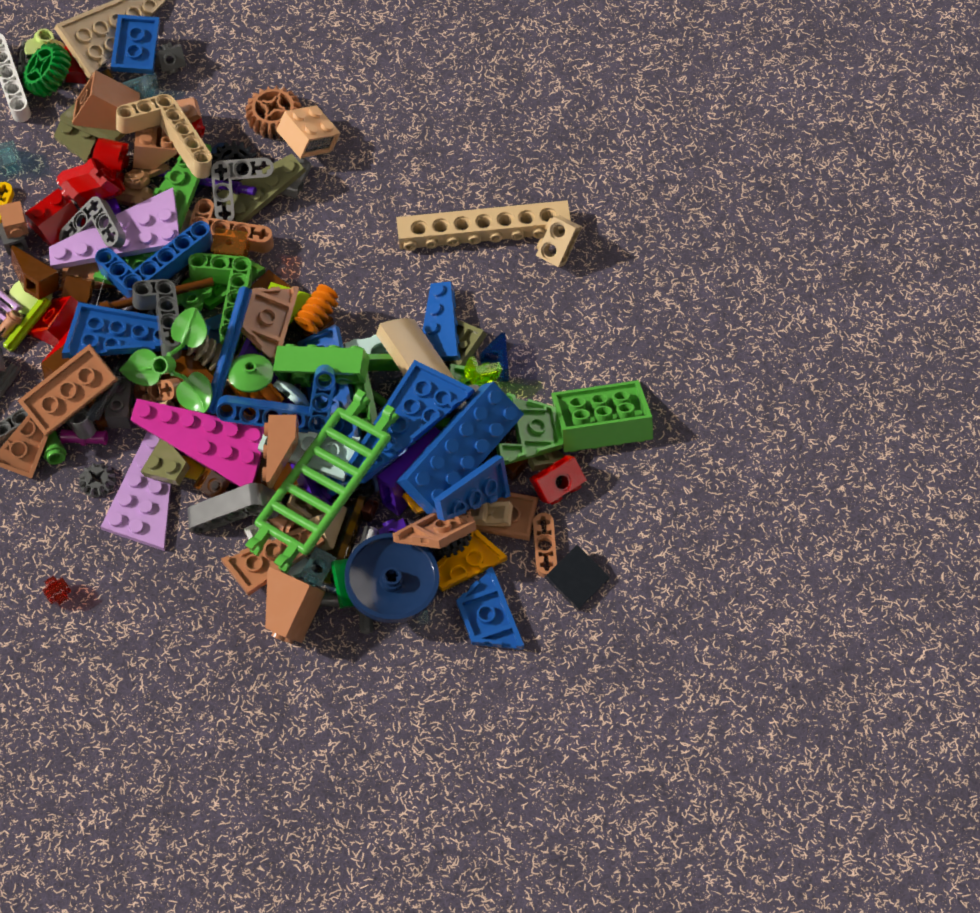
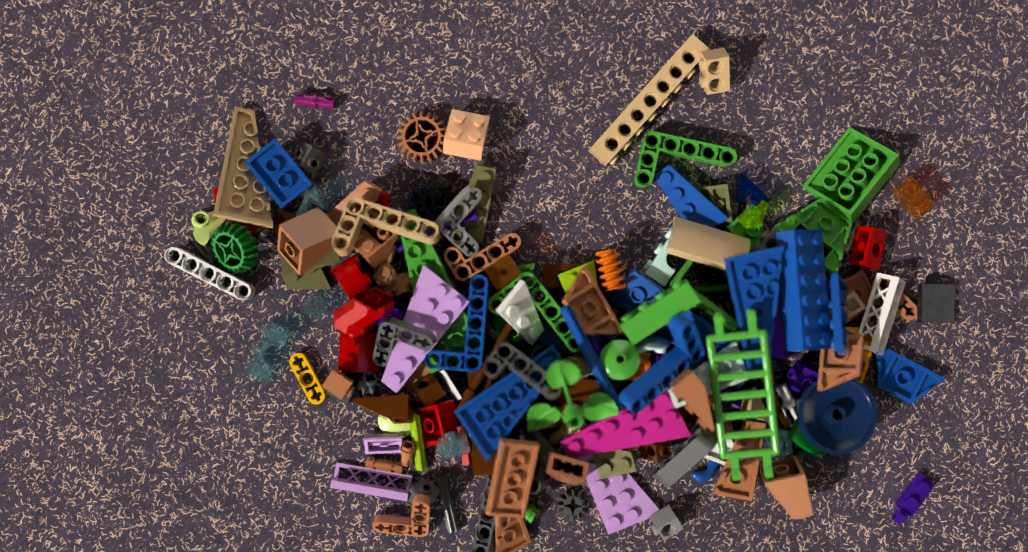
camera: 45 degrees left, 25 degrees up
(38, 247) = (368, 383): none -> dark grey gear
(50, 331) = (453, 445): none -> clear light blue brick
(59, 161) = (315, 306): none -> clear light blue gear
(119, 429) = (567, 469): none -> nougat slope
(166, 551) = (665, 523): none -> light grey brick
(210, 281) = (521, 313): none -> white wing
(219, 26) = (314, 100): none -> magenta pin
(230, 548) = (707, 474): none -> blue arm
(395, 728) = (912, 498): none -> dark purple hinge
(470, 280) = (679, 151): none -> bright green beam
(516, 540) = (887, 314): none -> white fence
(637, 472) = (912, 197): none -> clear orange brick

